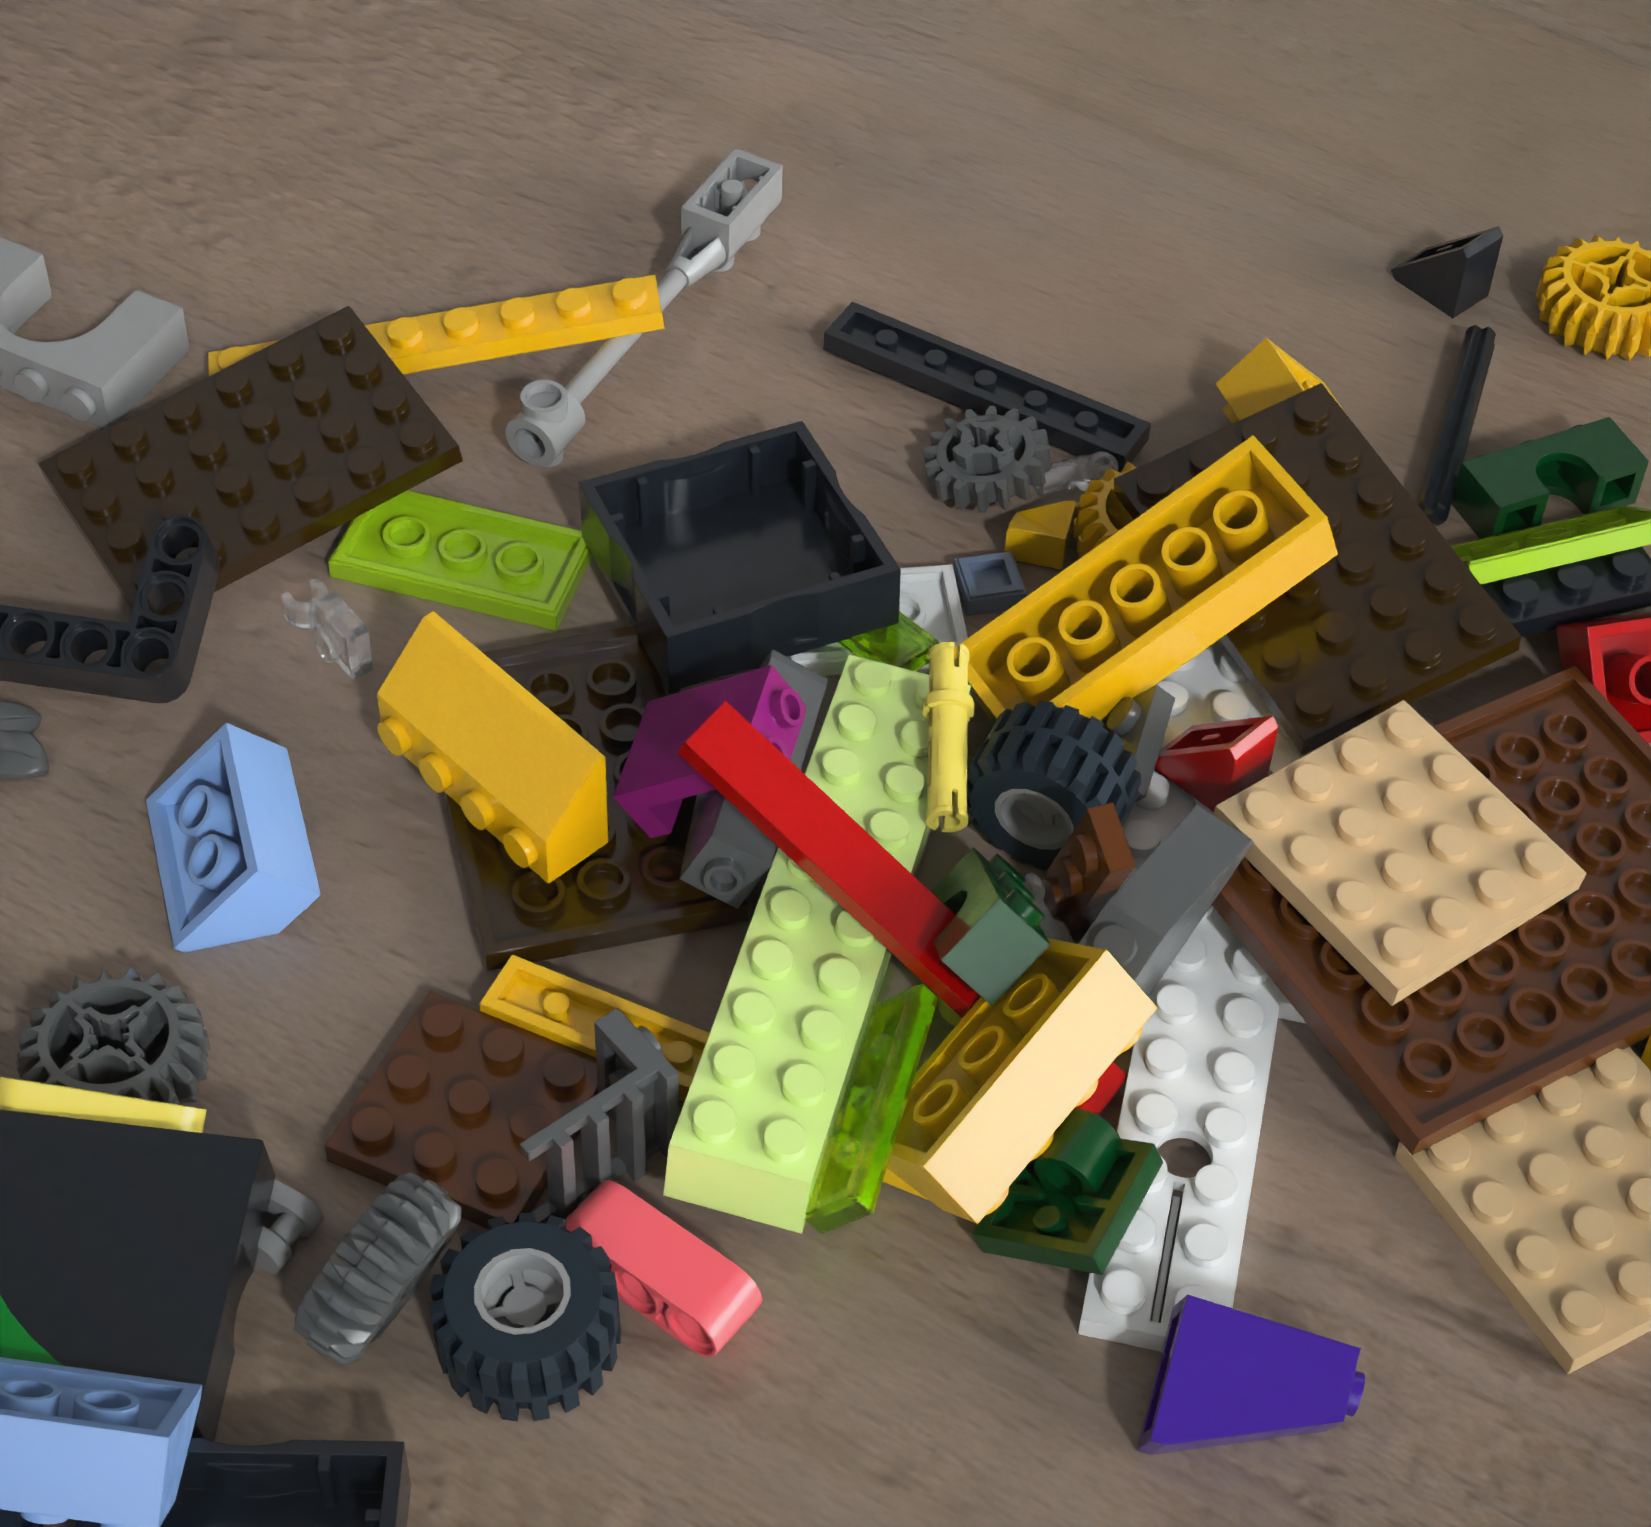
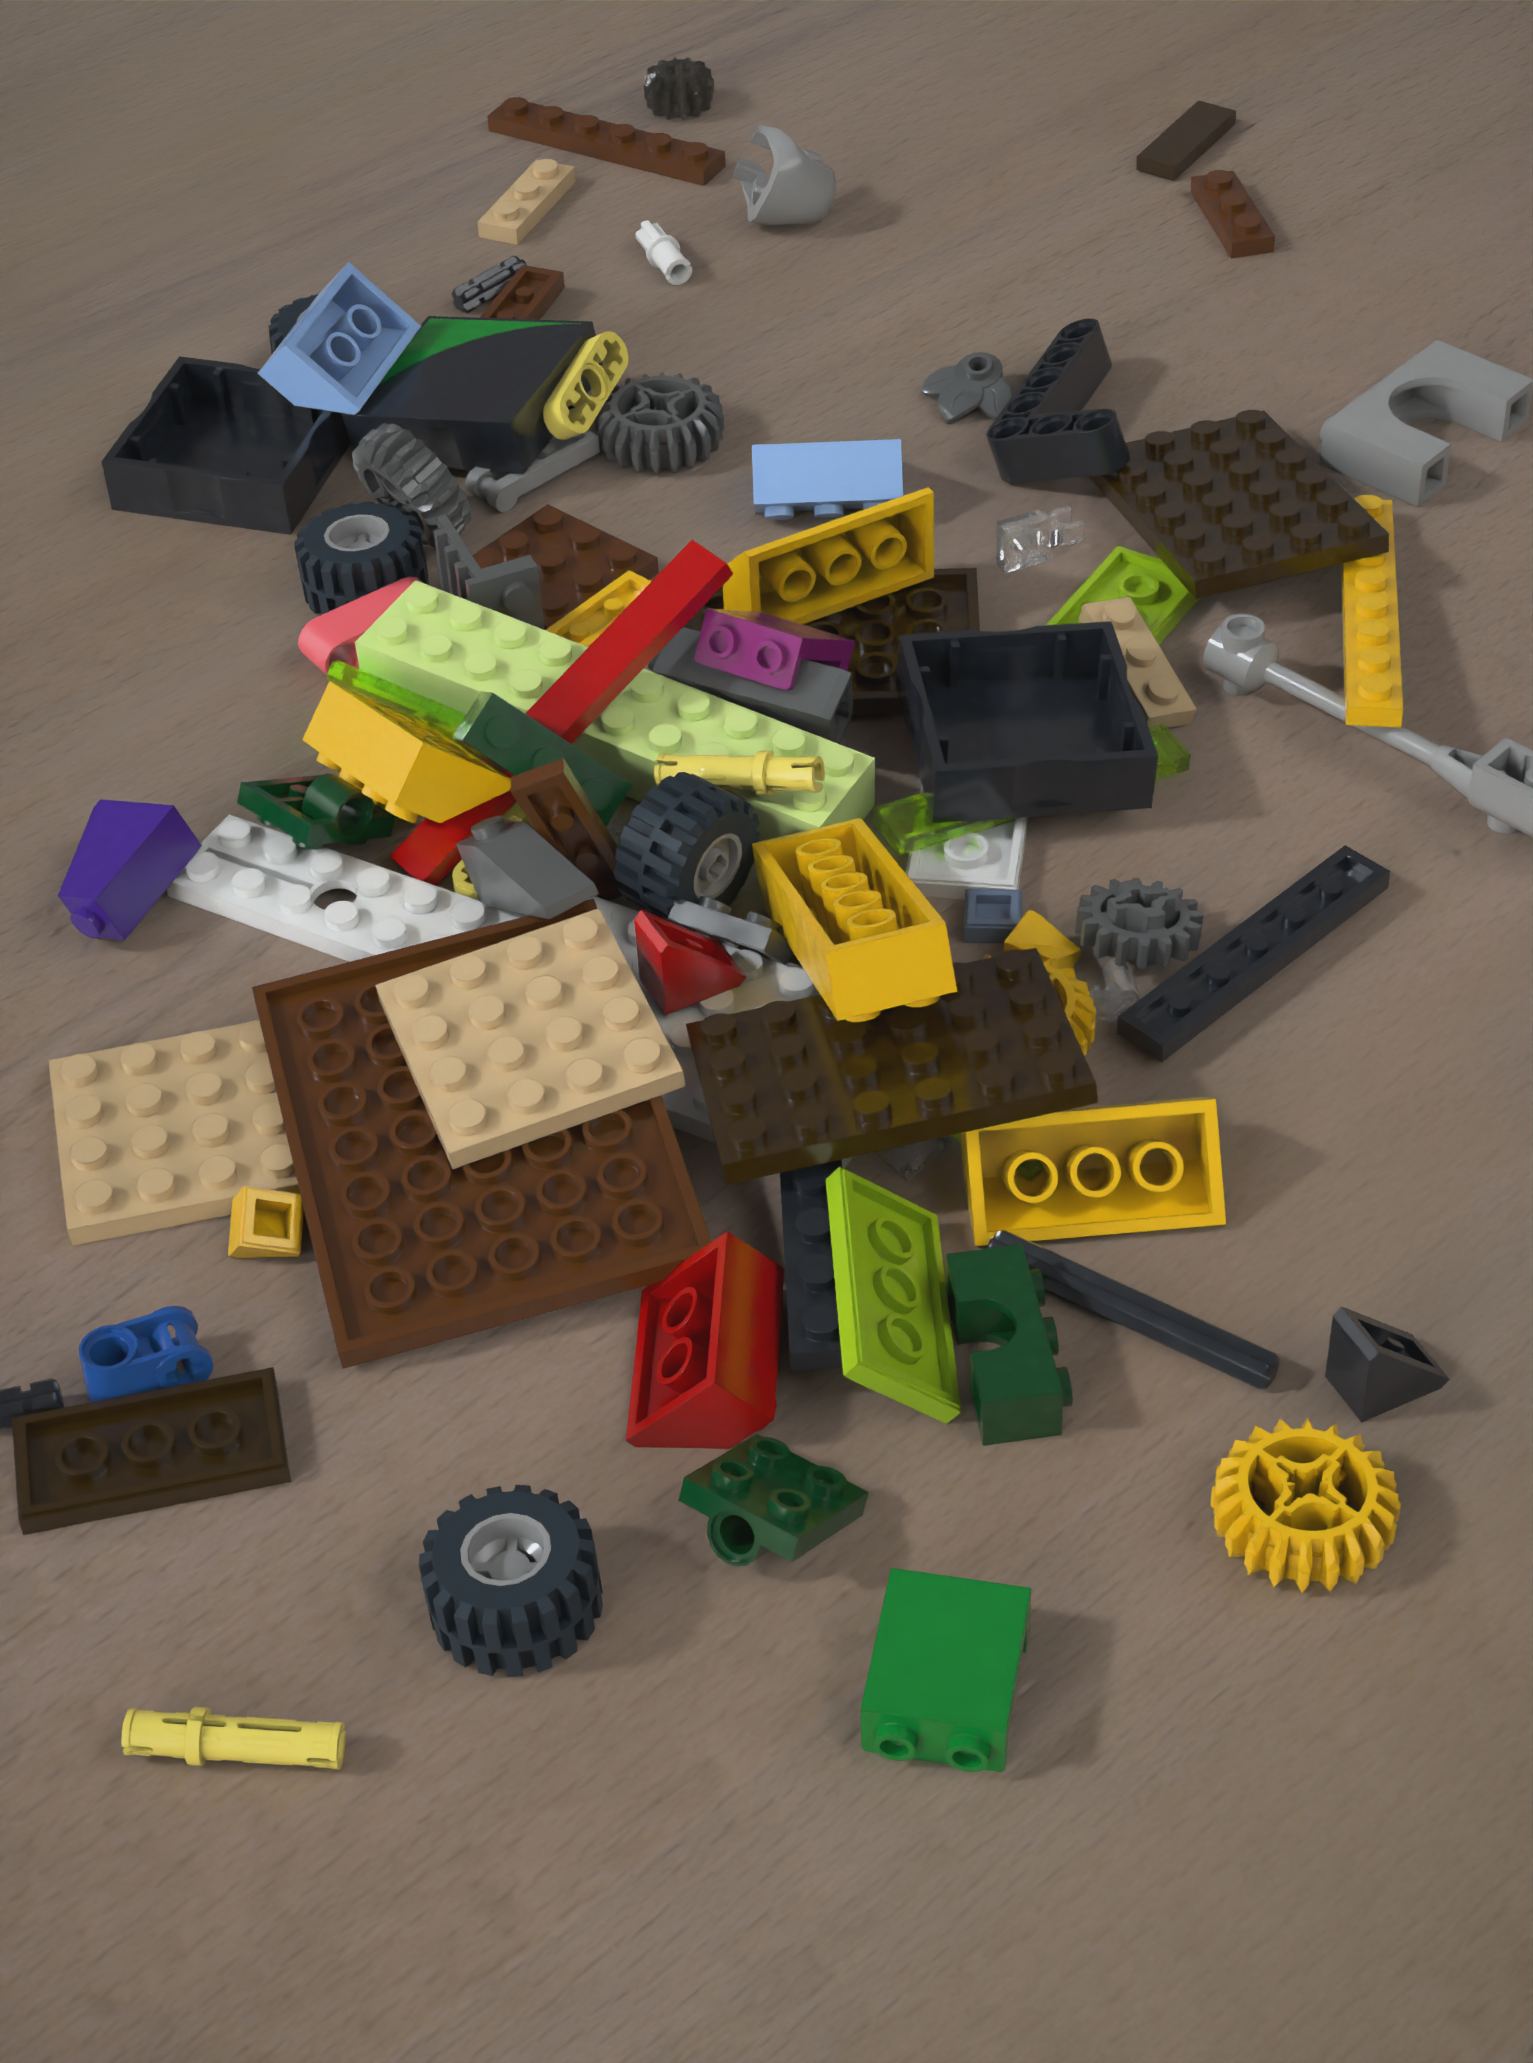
camera: 110 degrees right, 5 degrees down
(536, 517) = (1148, 671): none -> tan plate

